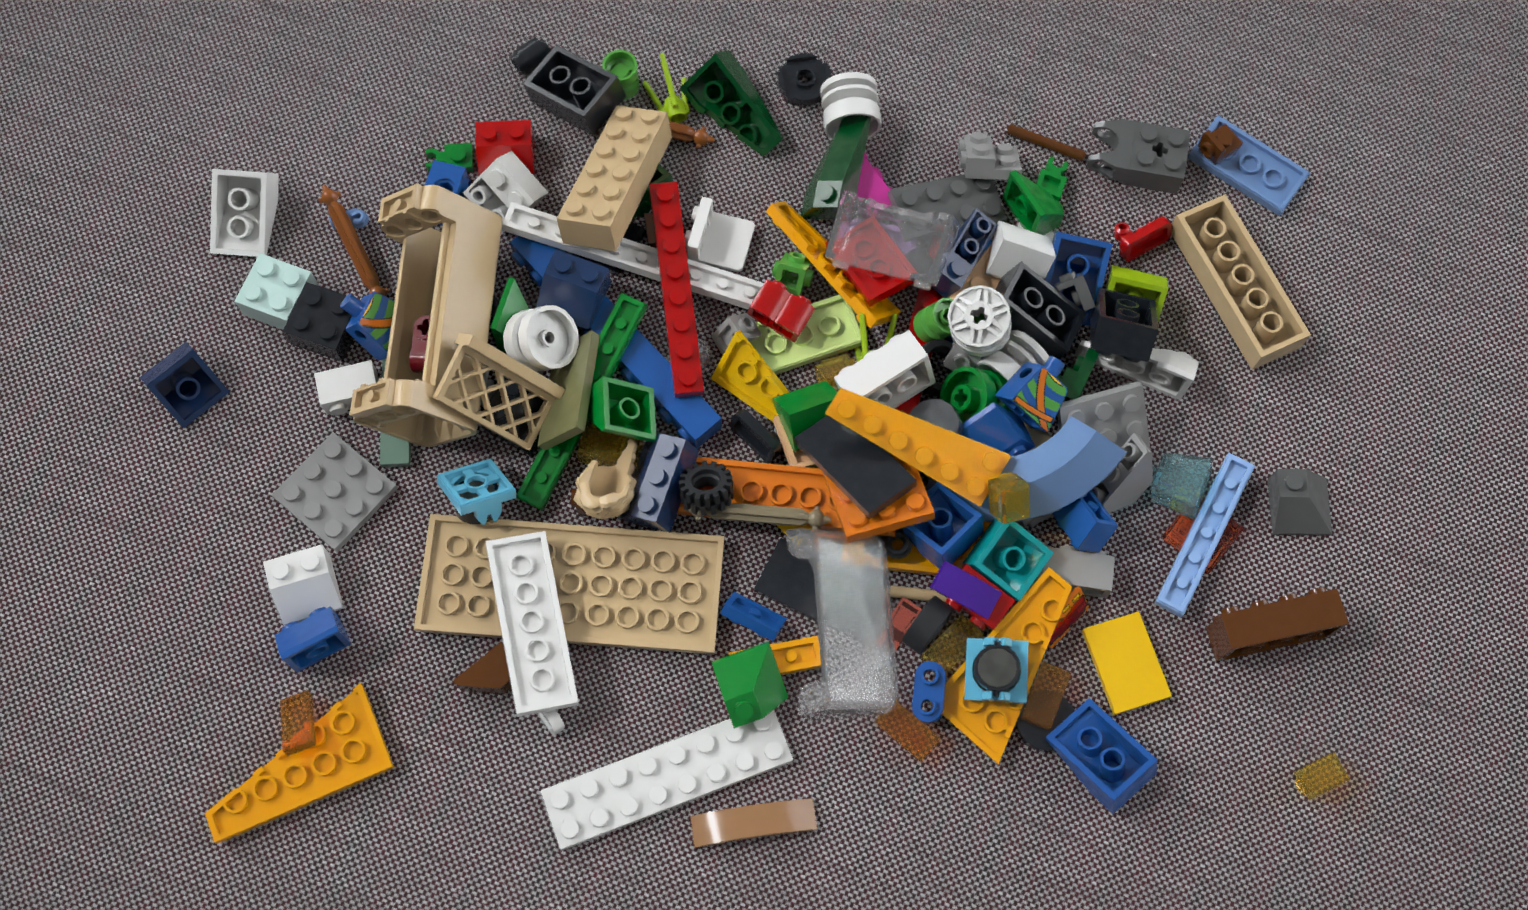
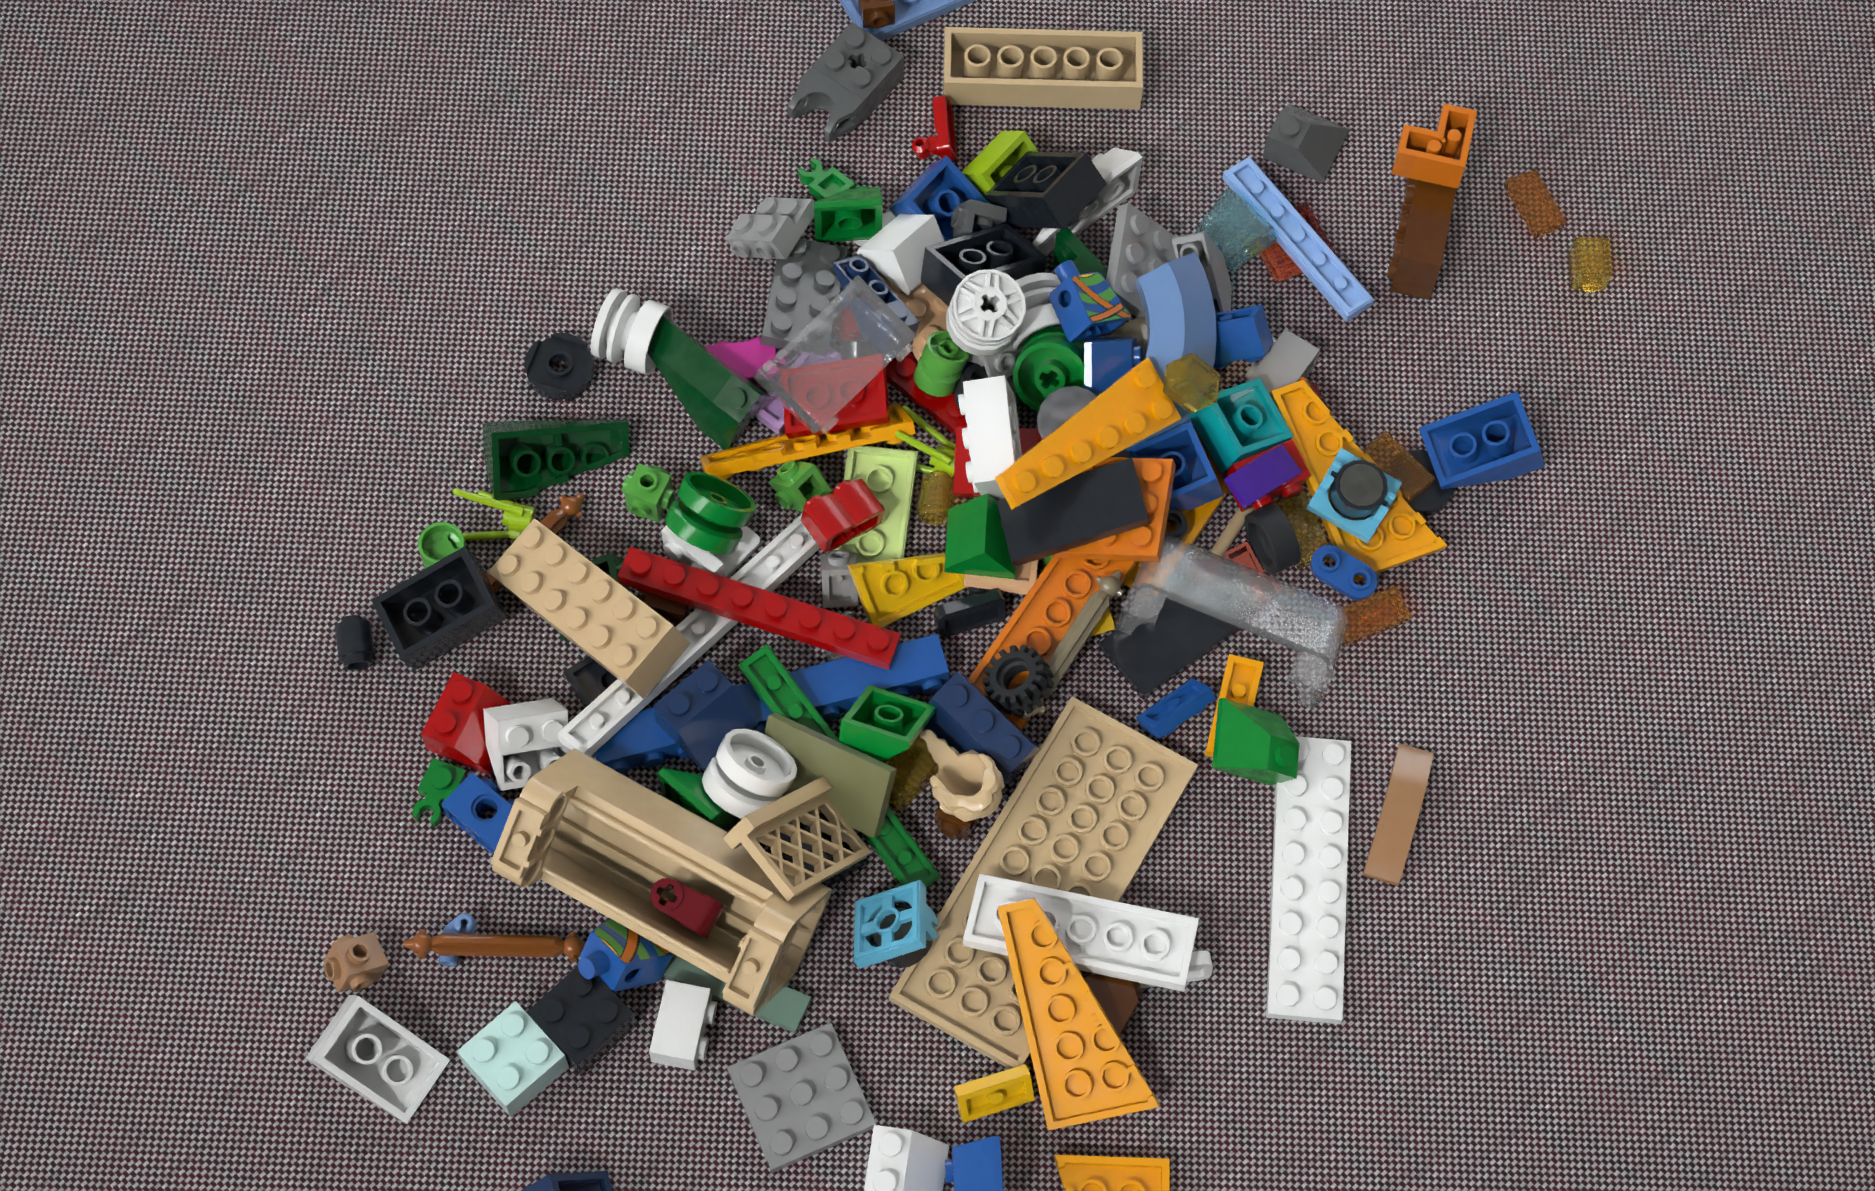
camera: 65 degrees left, 5 degrees down
(296, 173) = (355, 962): none -> medium nougat brick
(390, 619) = (994, 1093): none -> yellow plate
(442, 655) = (1072, 1044): none -> light orange wing
(729, 219) = (710, 513): none -> green wheel
(735, 179) = (648, 492): none -> bright green brick
(1046, 142) = (775, 167): reddish brown bar -> none
(1126, 663) = (1394, 379): yellow tile -> none
(1327, 602) = (1438, 154): none -> orange brick
(1353, 709) = (1534, 203): none -> clear orange tile

